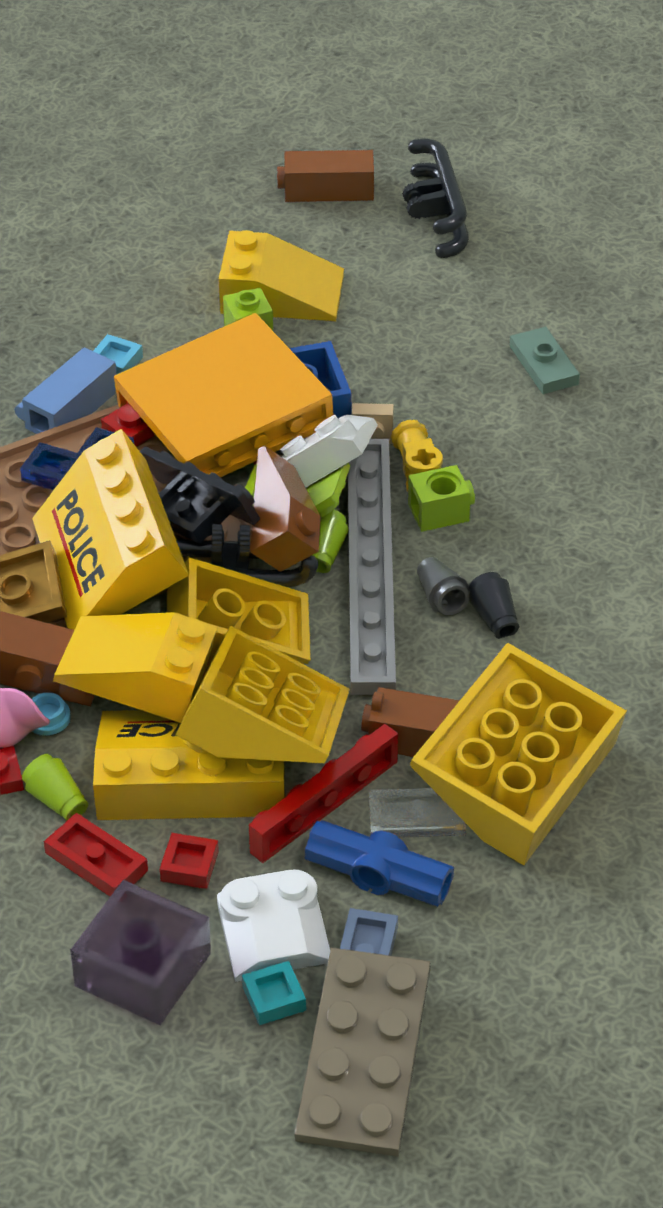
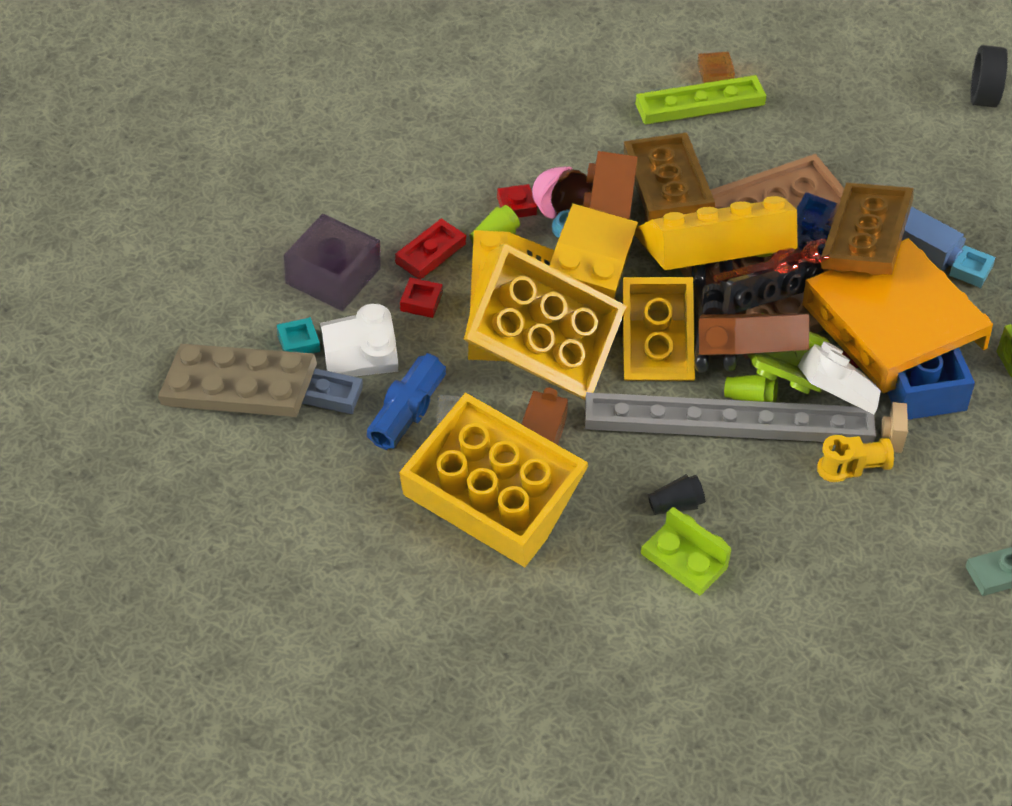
camera: 90 degrees right, 5 degrees up
(104, 398) = (868, 228): none -> pearl gold plate
(184, 474) = (779, 261): none -> clear red flag
(323, 793) = (475, 371): red plate -> none
(440, 498) = (803, 466): lime brick -> none
(443, 587) = (700, 461): flat silver cone -> none
(572, 598) = (688, 552): none -> lime bracket

